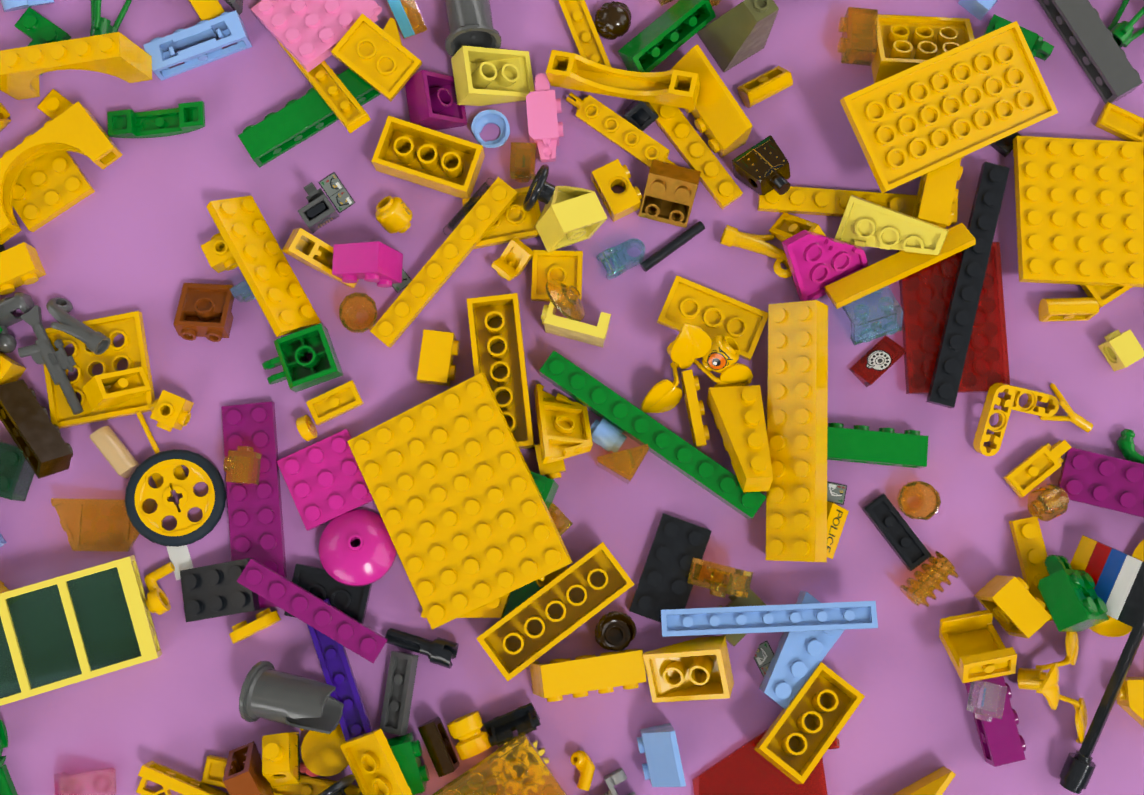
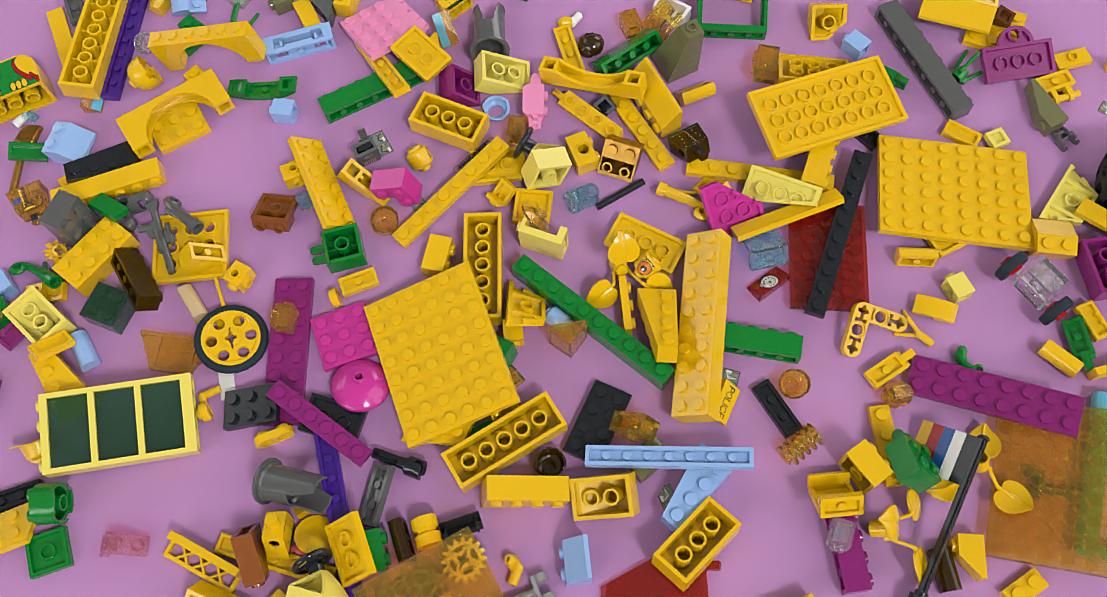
camera: 10 degrees right, 15 degrees down
(192, 154) = (283, 111): none -> light blue brick
(1094, 381) = (935, 308): none -> yellow slope
(1114, 734) = (946, 573): none -> dark brown brick

